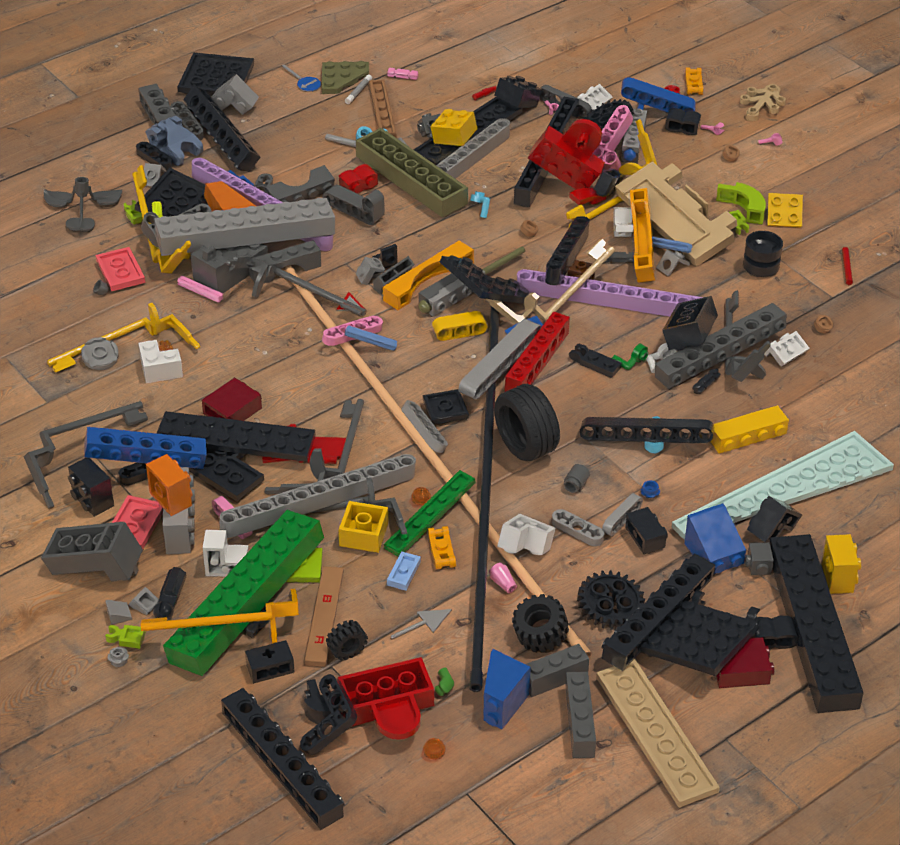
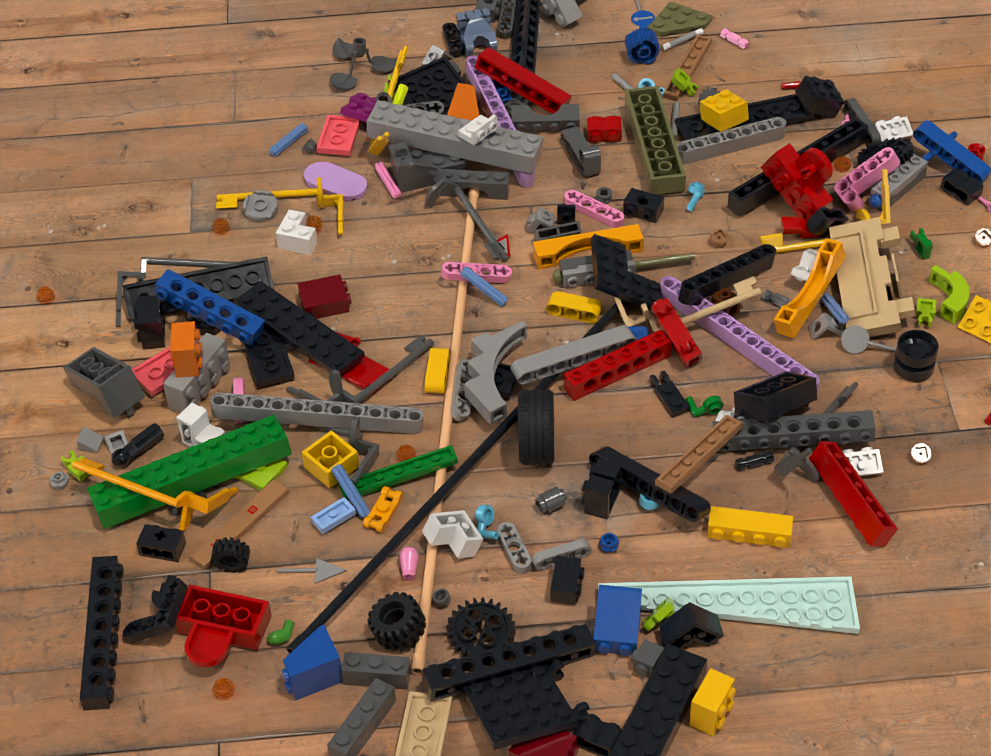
camera: 35 degrees right, 5 degrees up
(73, 290) = (288, 139): none -> medium blue axle
(75, 384) = (220, 226): none -> clear orange plate
(126, 237) = (359, 107): none -> magenta plate
(135, 306) = (336, 180): none -> lavender tile
(140, 416) = (224, 280): none -> black plate
(258, 164) = (521, 80): none -> red brick
(271, 209) = (478, 129): none -> white bracket
(335, 102) = (642, 45): none -> blue brick
(388, 420) = (437, 370): none -> yellow beam
(392, 118) = (682, 81): none -> lime plate
(403, 231) = (604, 191): none -> dark grey bush
(406, 542) = (351, 491): none -> medium blue axle
(424, 245) = (611, 218): none -> bright pink beam
(446, 226) = (643, 205): none -> black brick
(446, 414) = (488, 353): none -> light grey arch
(533, 512) = (485, 516): none -> medium azure plate
(559, 588) = (438, 597): none -> dark grey hinge
(581, 317) = (676, 331): none -> red brick
(614, 449) = (602, 488): none -> black piece
(671, 389) = (698, 454): none -> medium nougat tile
(692, 174) = (922, 243): none -> green plate
(705, 261) = (856, 339): none -> light grey piece
(742, 517) = (661, 612): none -> lime plate
(809, 373) = (853, 494): none -> red brick

